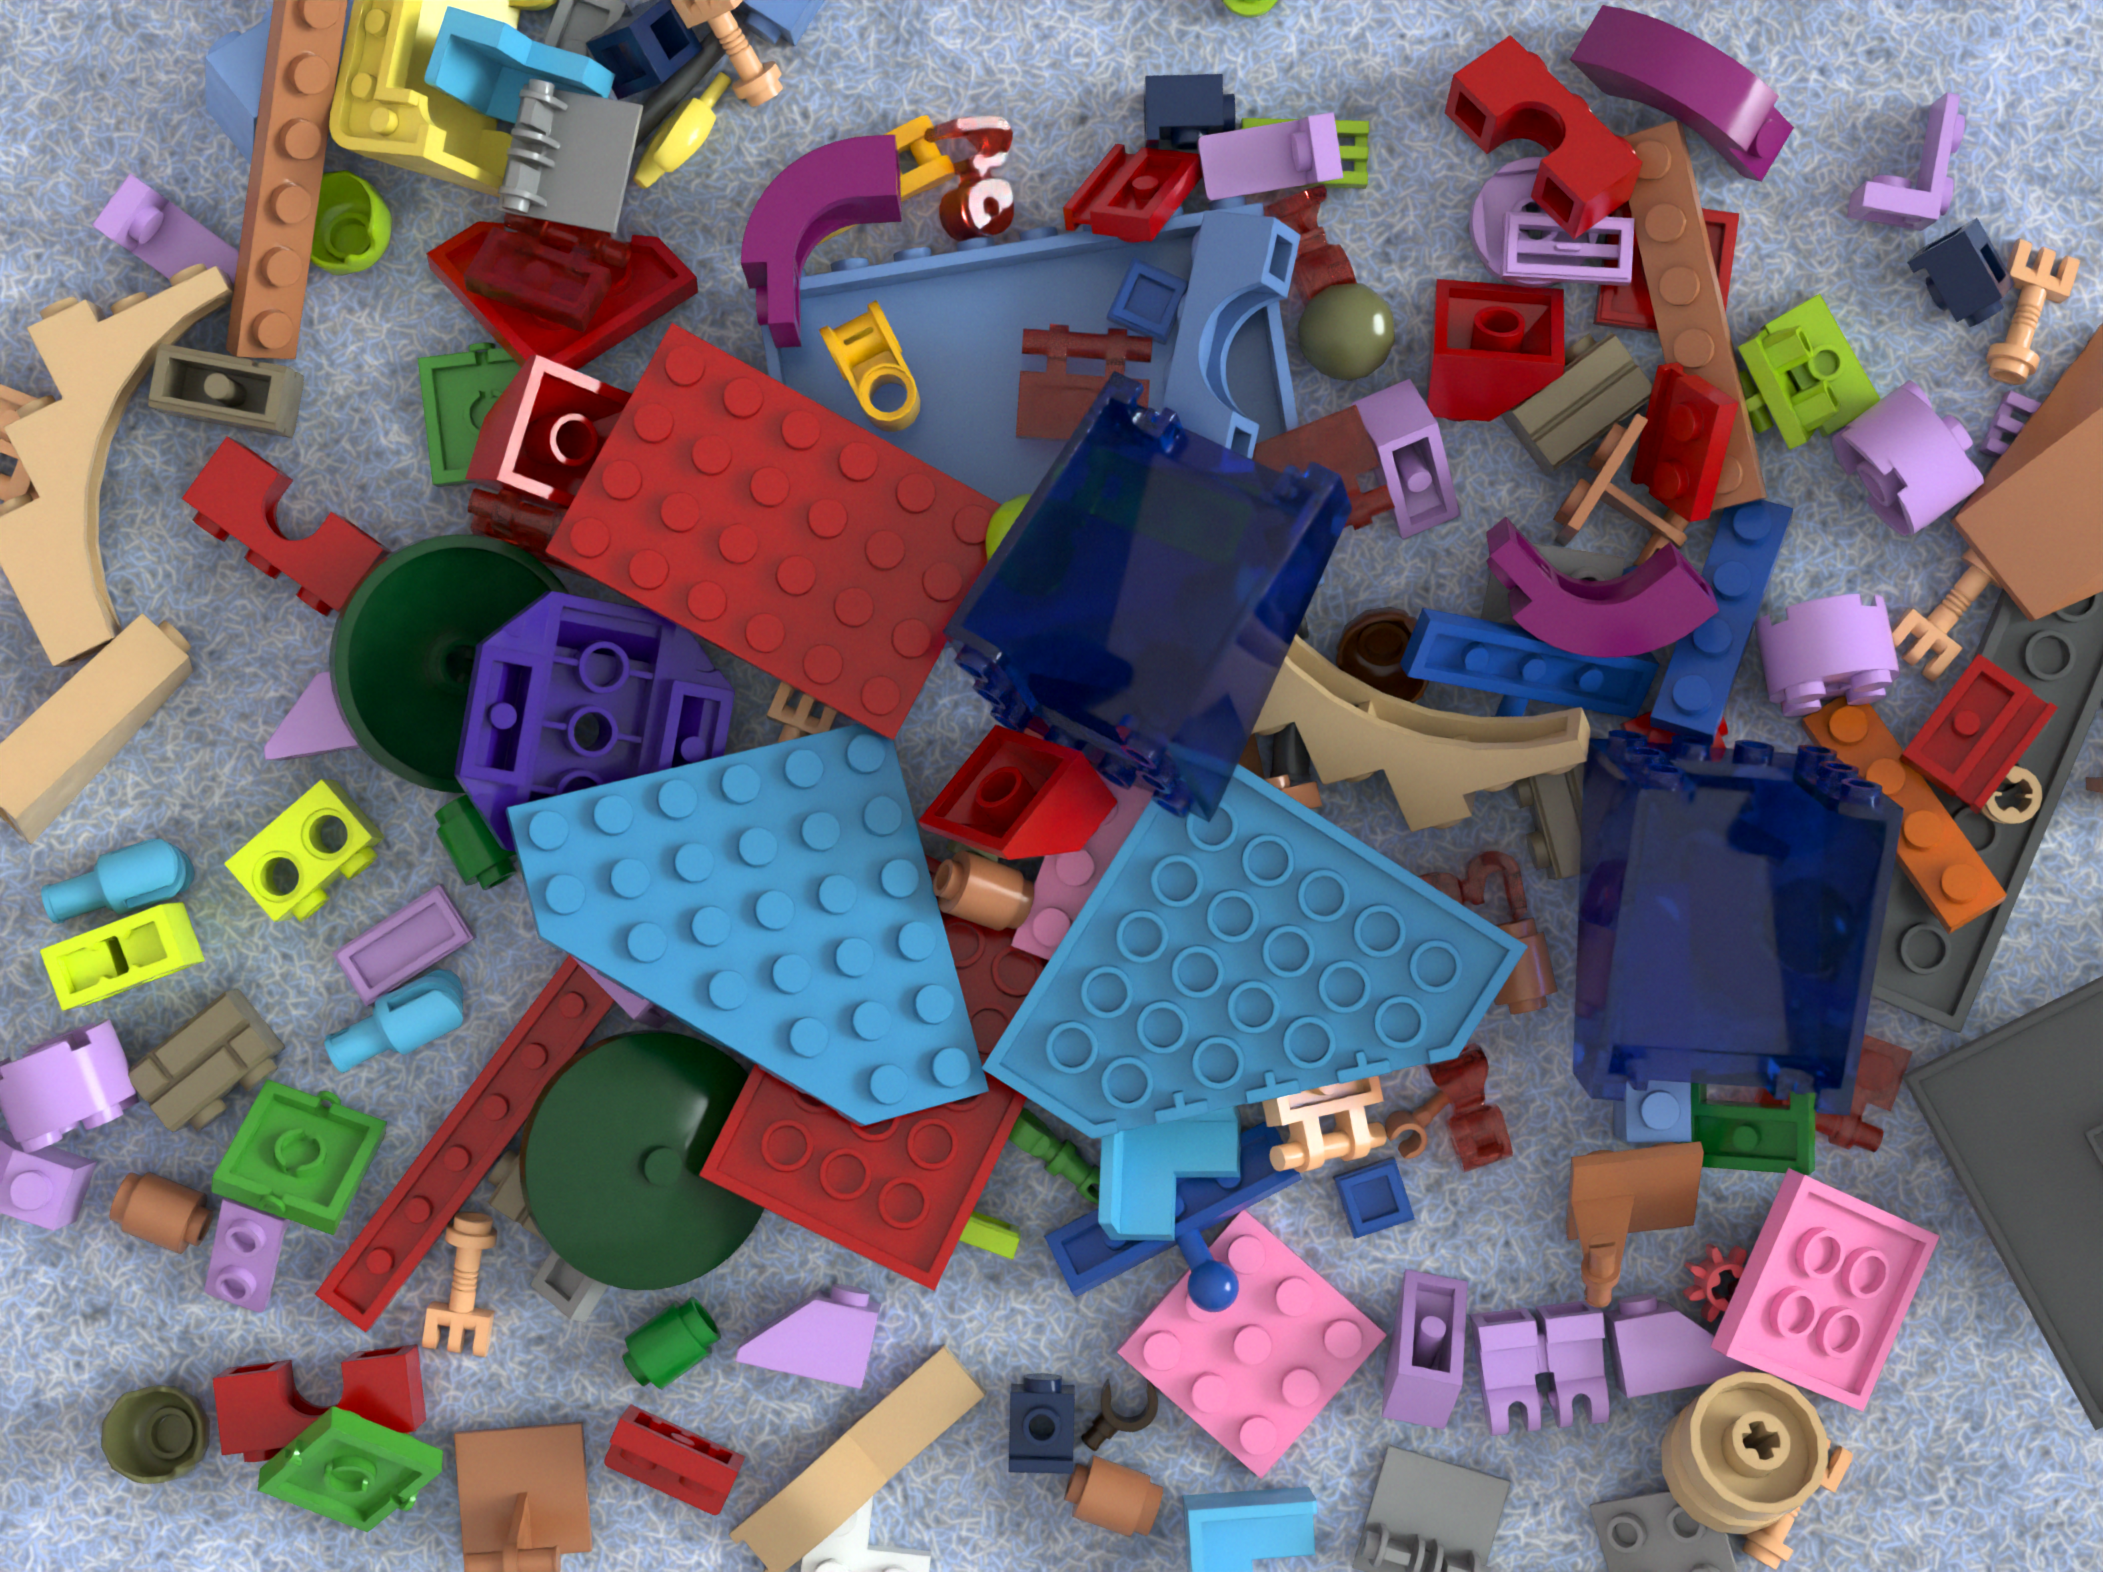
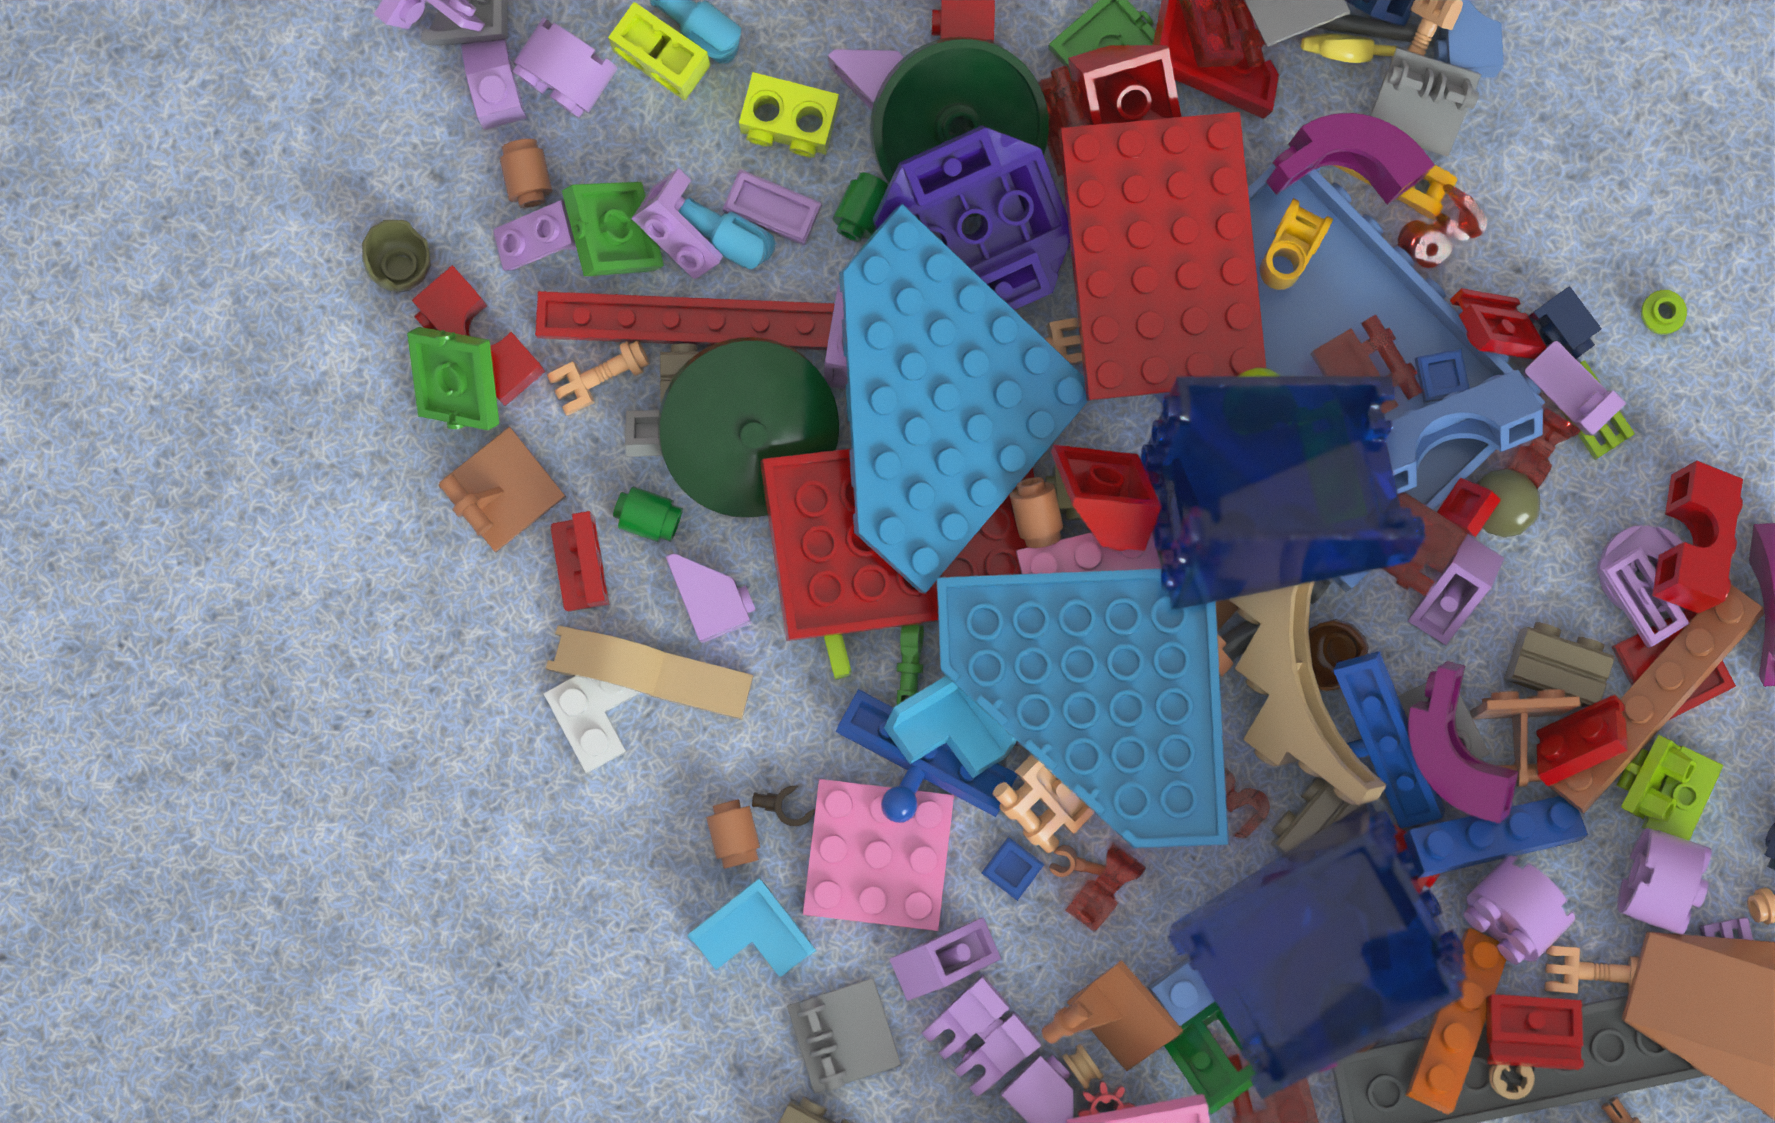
camera: 60 degrees right, 5 degrees down
(206, 1062) = (629, 140): dark tan brick -> none
(336, 1093) = (671, 231): none -> lavender bracket
(807, 86) = (1426, 99): none -> light grey hinge
(1041, 1453) = (741, 780): dark blue brick -> none
(1324, 381) = (1469, 506): none -> red plate
(1492, 347) = (1555, 593): red slope -> none
(1533, 974) = (1207, 864): nougat brick -> none
(1656, 1275) = (1082, 1066): none -> tan bush

